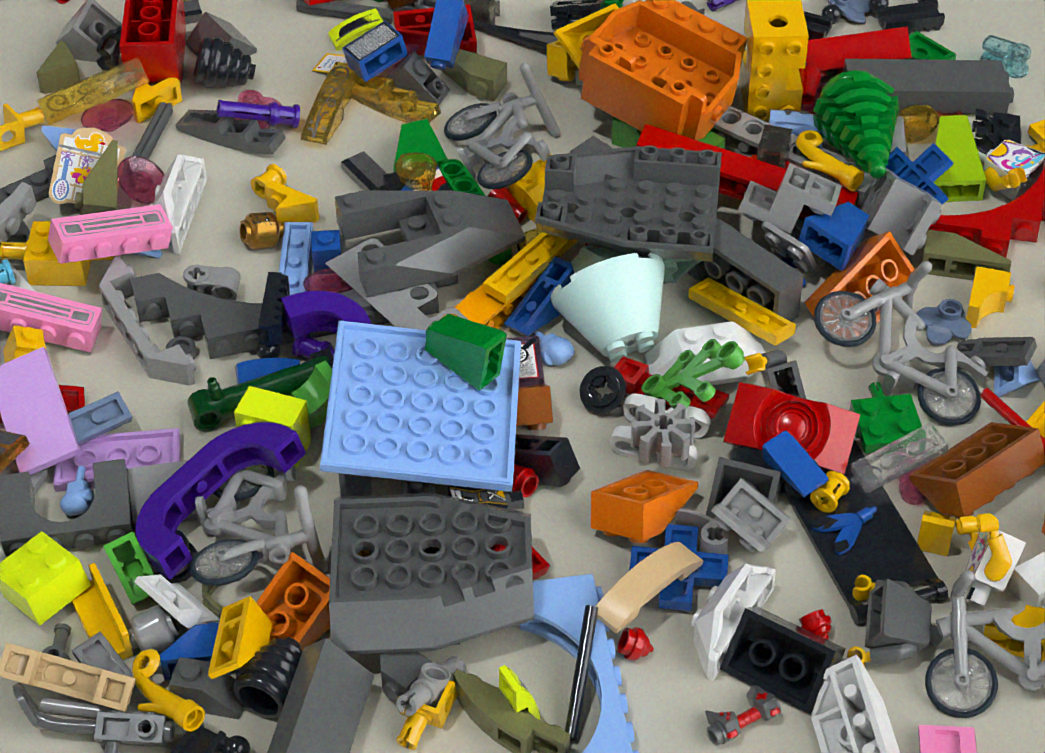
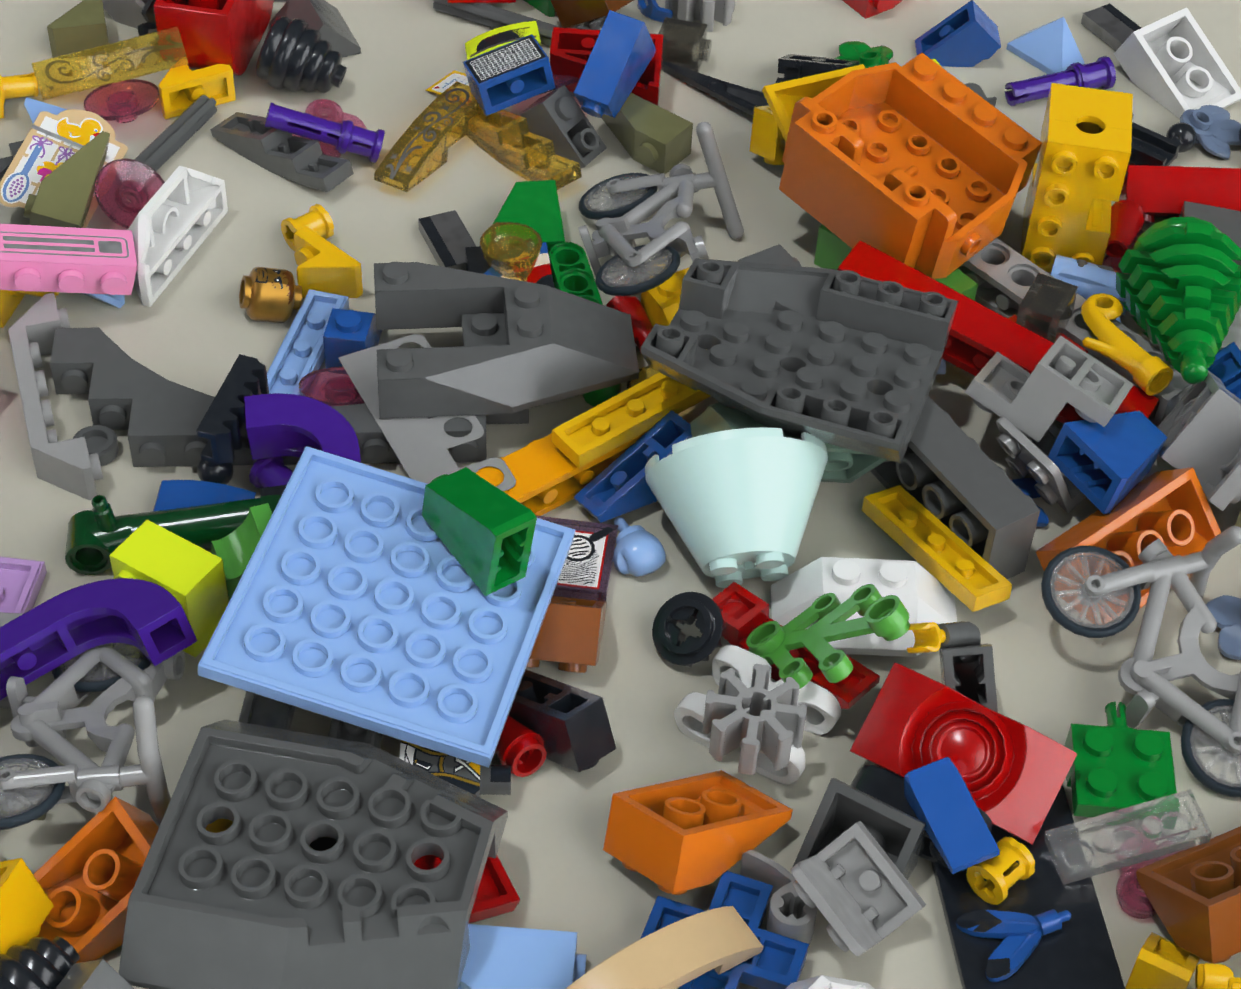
camera: 10 degrees right, 0 degrees up
(213, 281) = (175, 356): light grey piece -> none

